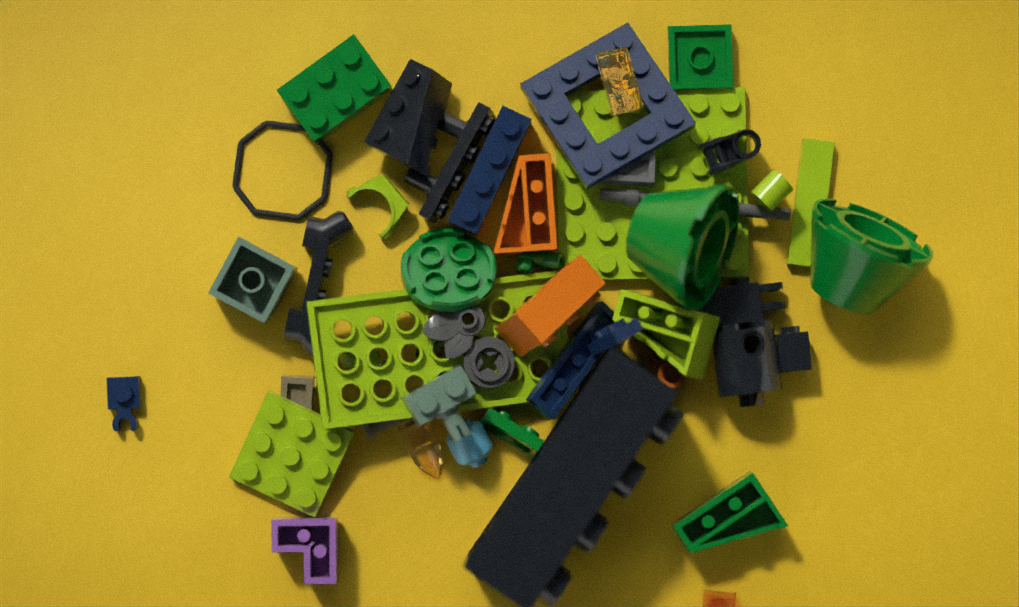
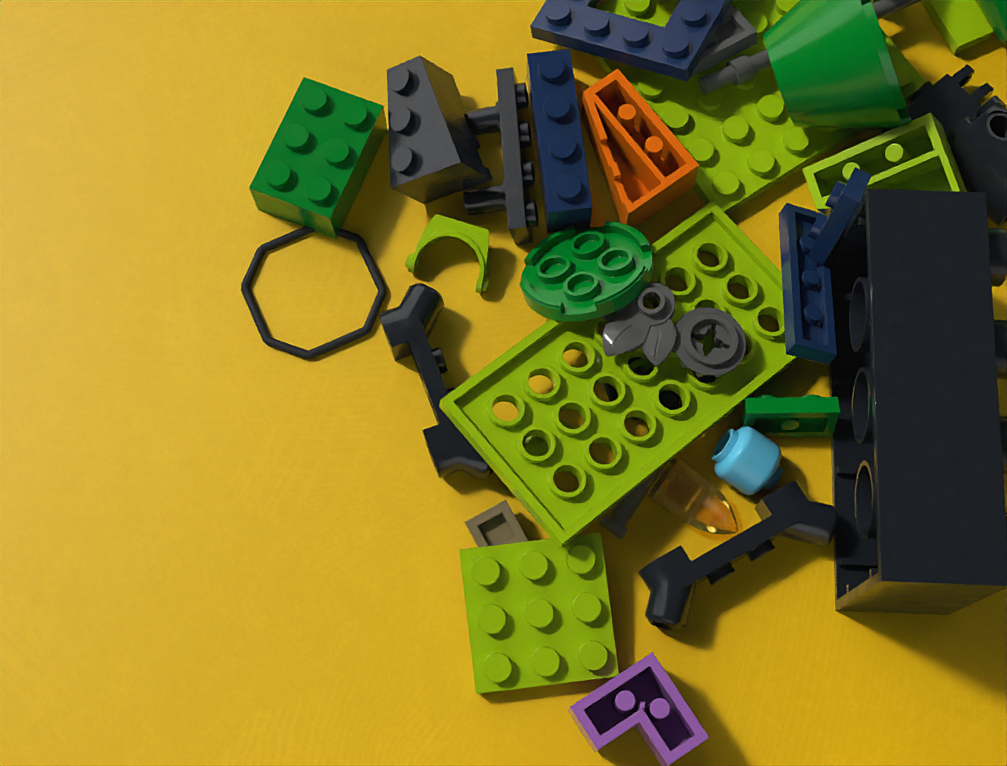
camera: 30 degrees left, 15 degrees down
(123, 395) = (277, 677): dark blue plate -> none
(253, 280) = (355, 426): sand green brick -> none
(380, 484) = (782, 513): none -> black plate
(440, 400) = (687, 413): sand green brick -> none
(544, 259) = (675, 206): green arm -> none
(551, 307) = (739, 235): orange wedge -> none

